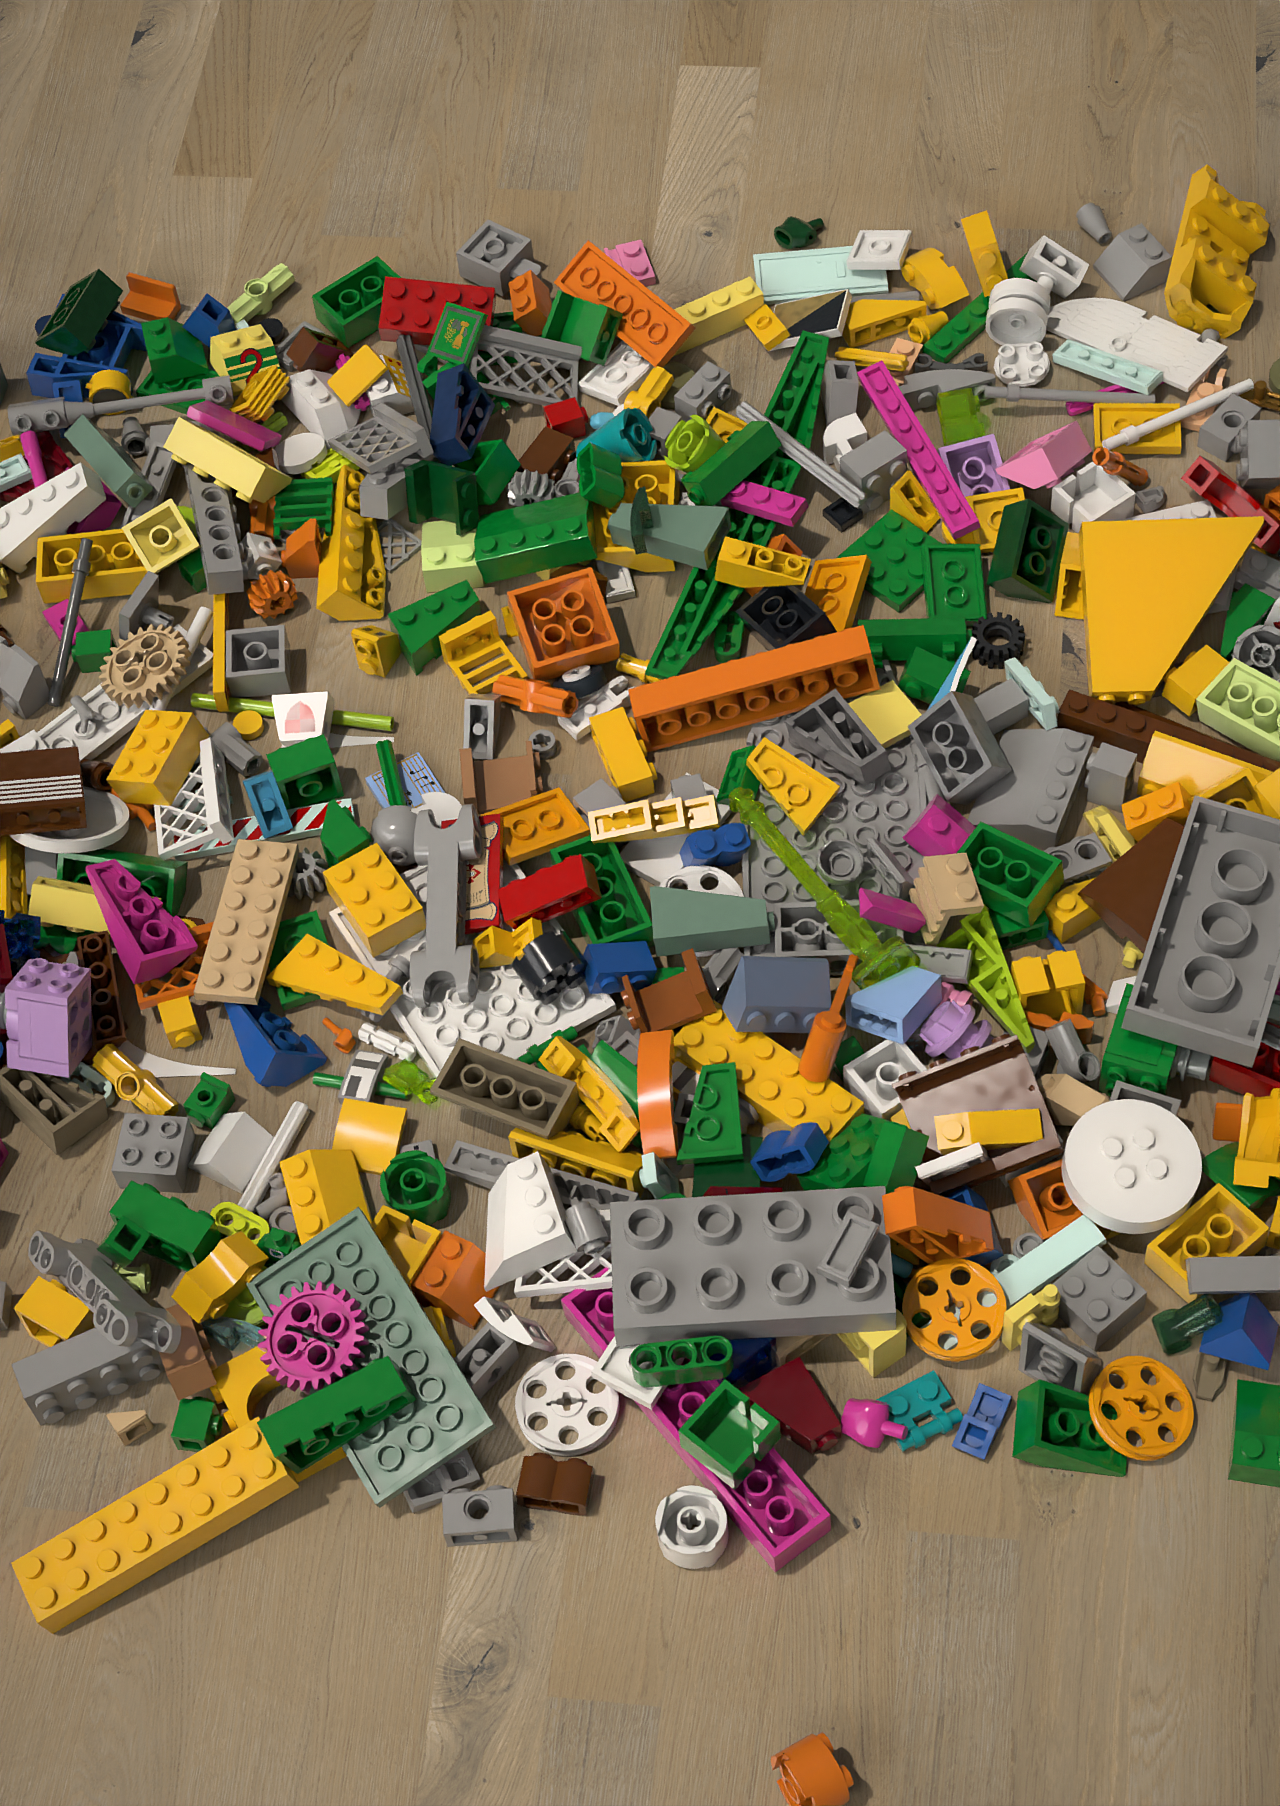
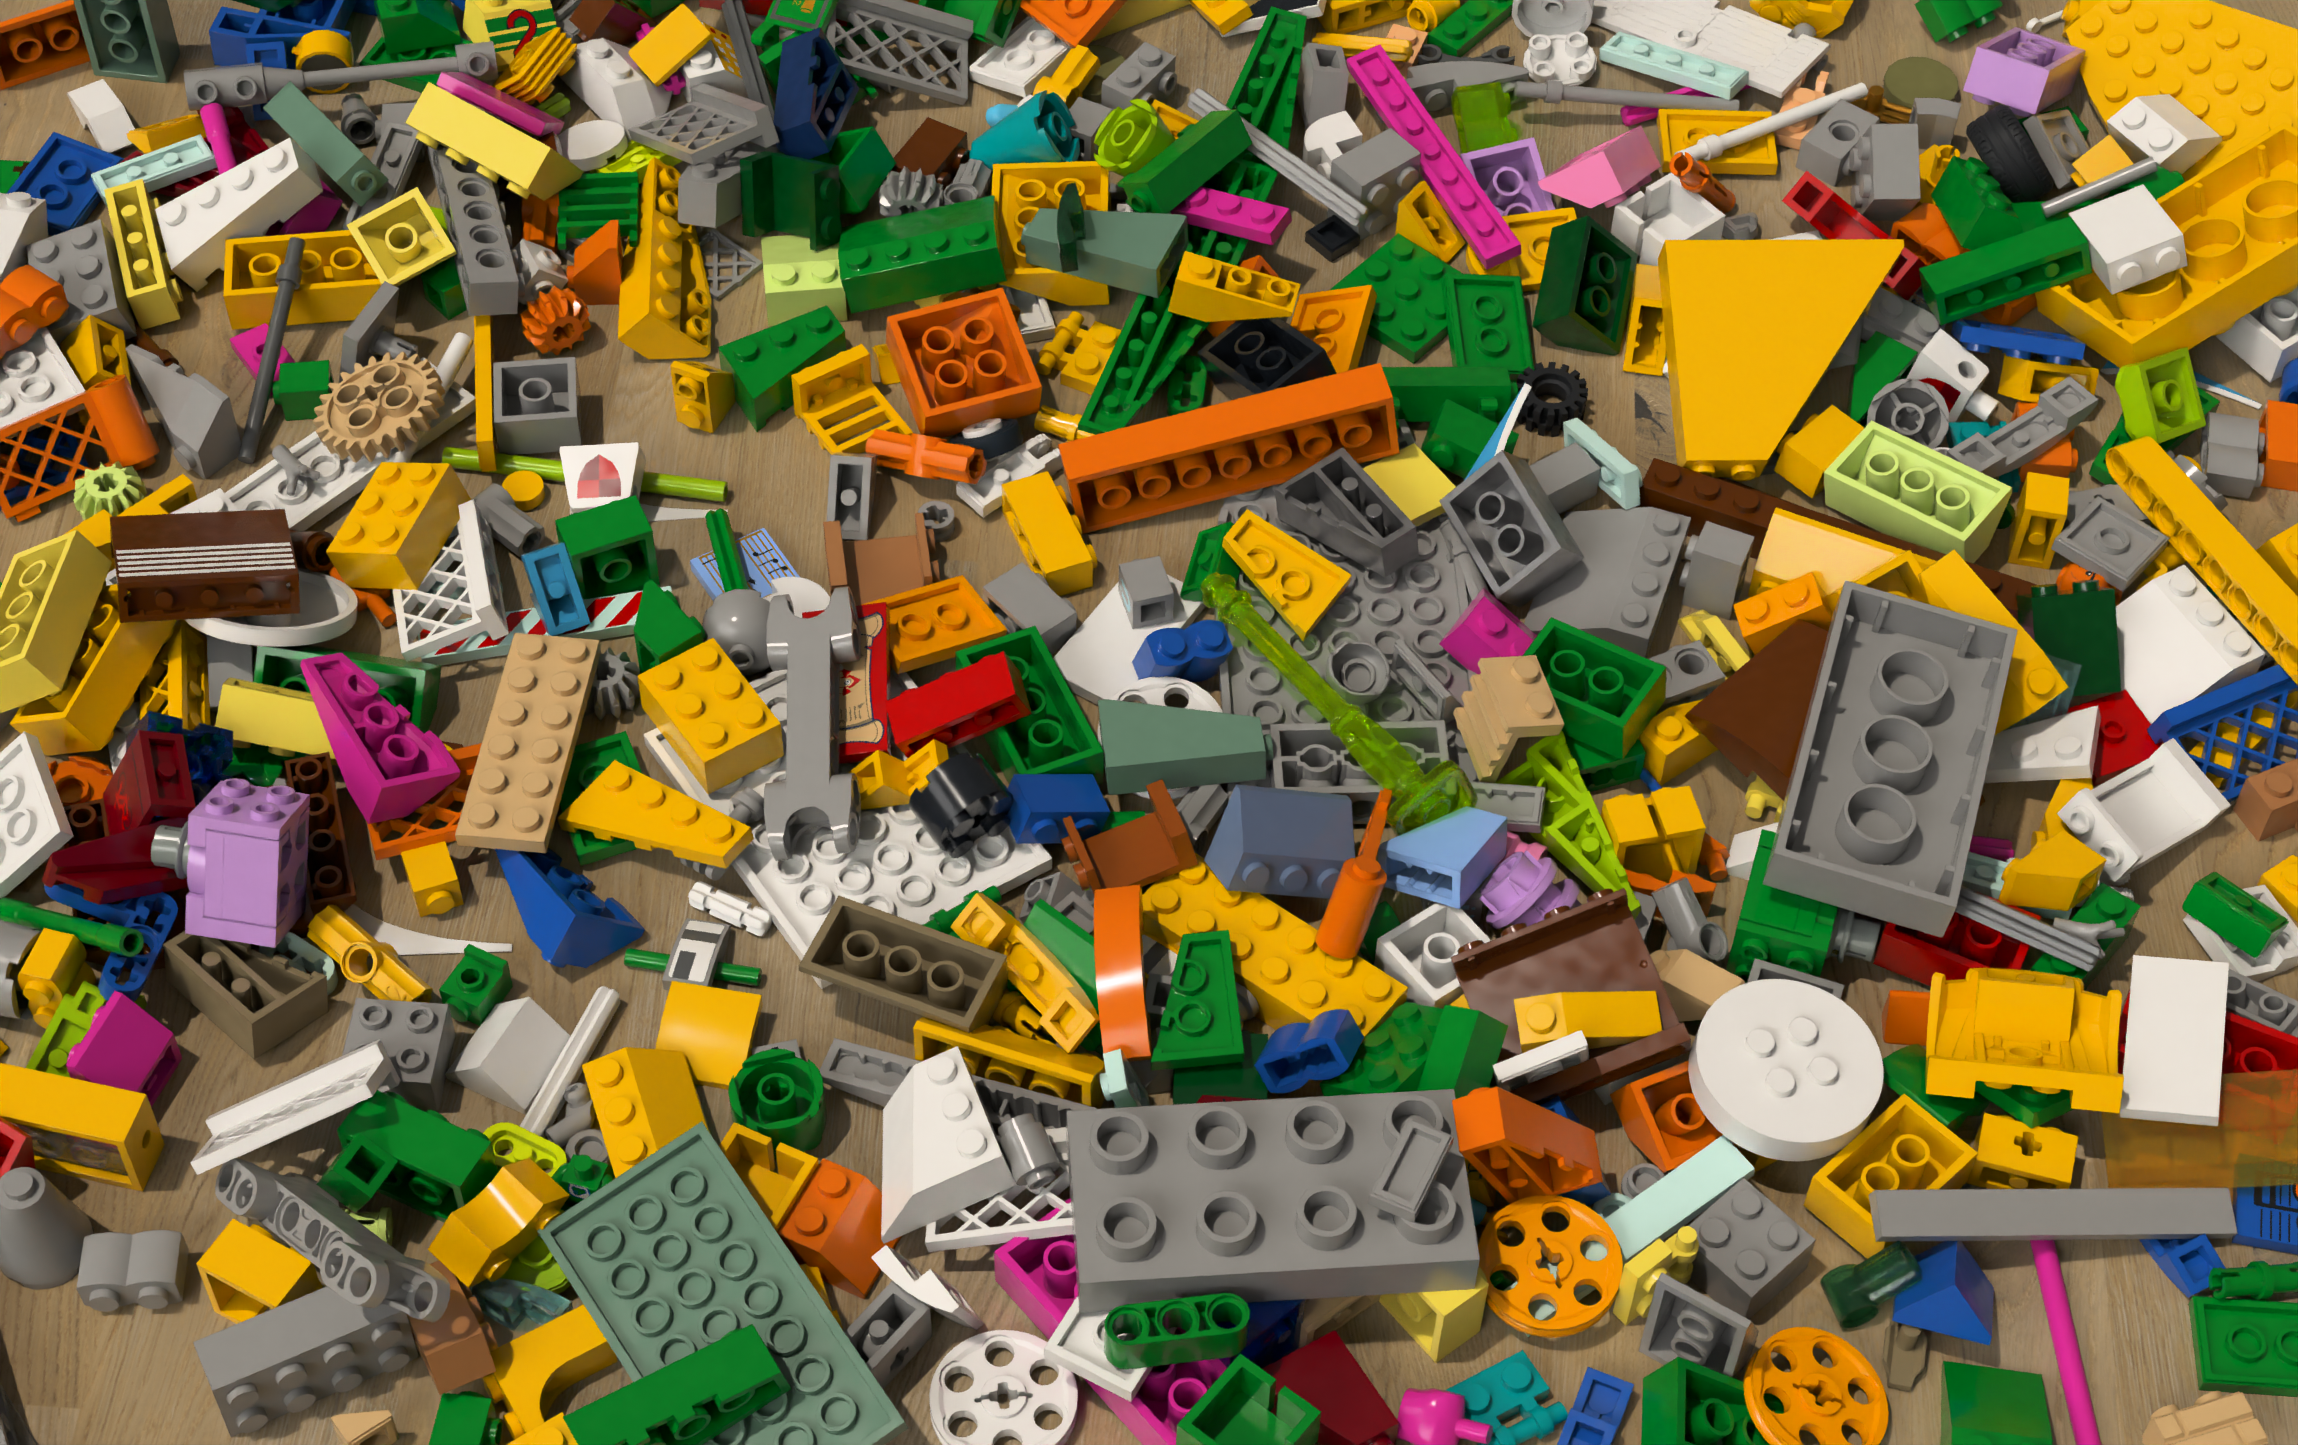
camera: 10 degrees left, 5 degrees down
(82, 1192) = (296, 1104): none -> white fence
(326, 1308) = (621, 1341): dark pink gear -> none
(344, 1040) = (668, 902): orange hand -> none
(410, 1079) = (764, 957): clear neon green plate -> none
(566, 417) = (955, 107): red brick -> none
(600, 475) = (1008, 175): green brick -> none
(653, 820) = (1098, 614): yellow slope -> none
(654, 620) = (1088, 361): none -> yellow plate
(890, 911) = (1433, 734): dark pink slope -> none

